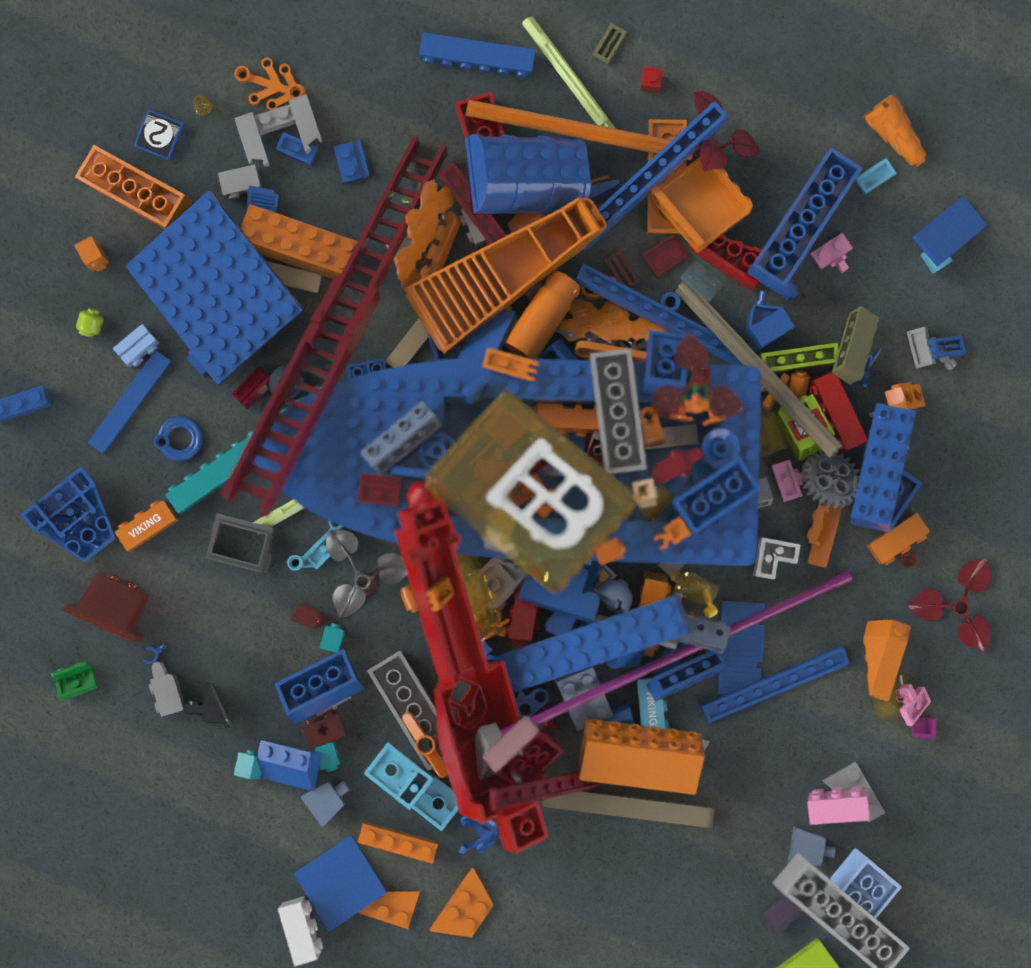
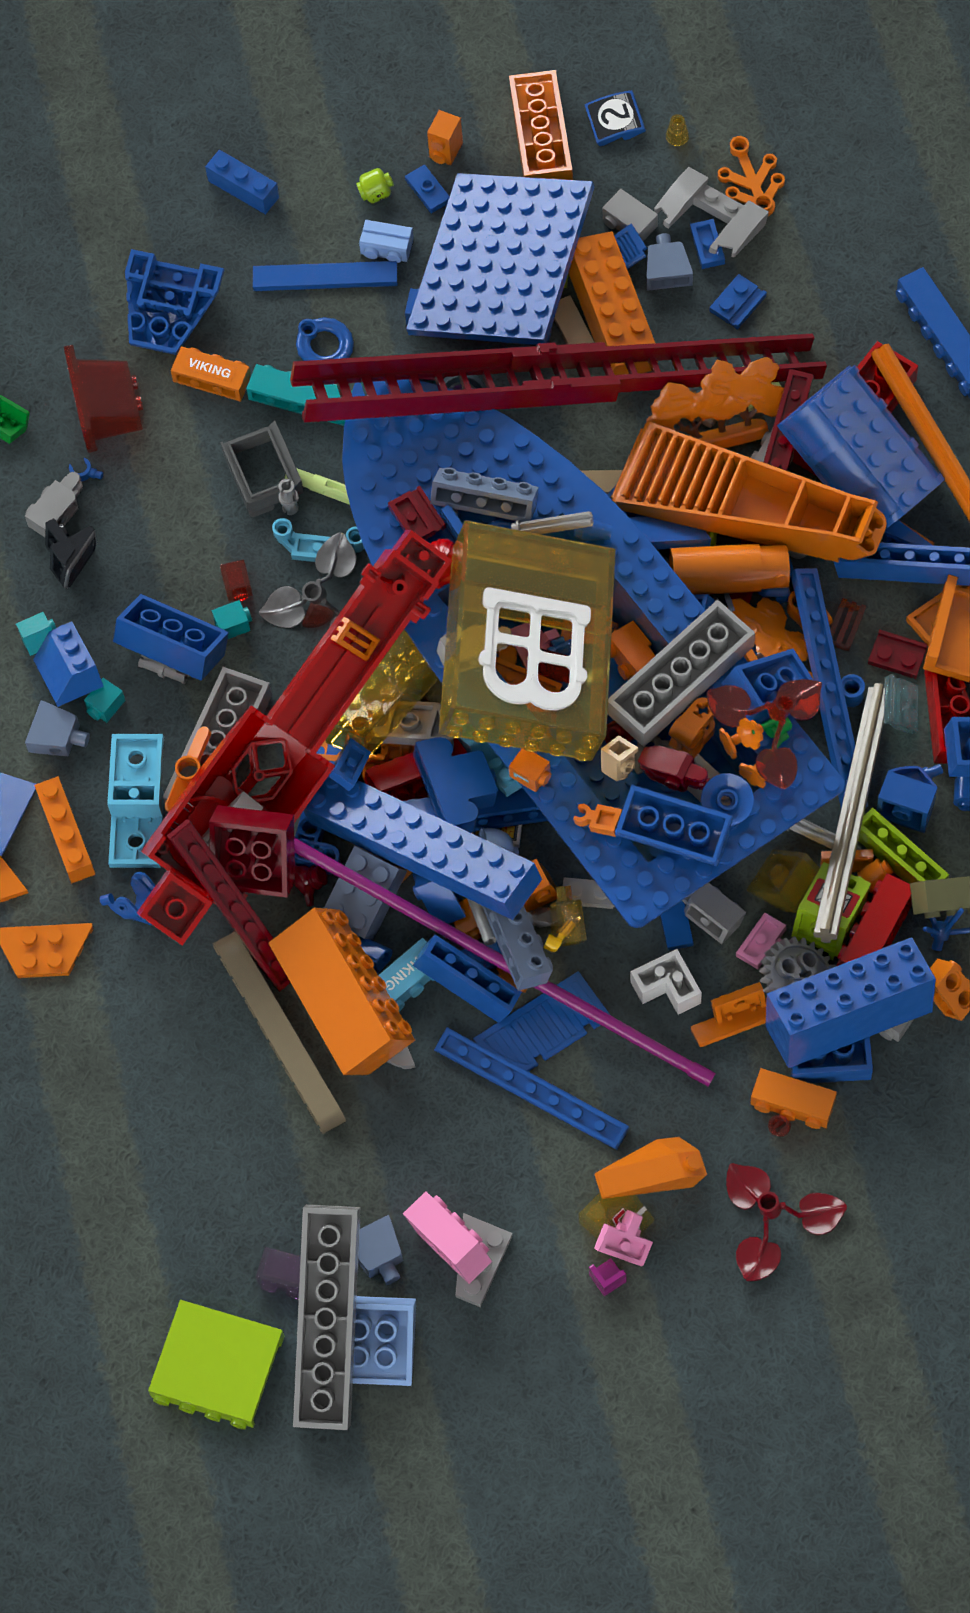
camera: 60 degrees right, 20 degrees down
(116, 290) = (427, 188): none -> blue plate
(272, 543) = (288, 496): none -> light grey pin
(292, 184) = (668, 264): none -> sand blue torso
(316, 738) = (134, 689): clear red brick -> none
(456, 413) = (555, 524): none -> light grey axle
(505, 648) = (349, 764): none -> blue plate
(509, 364) = (644, 543): orange hinge -> none

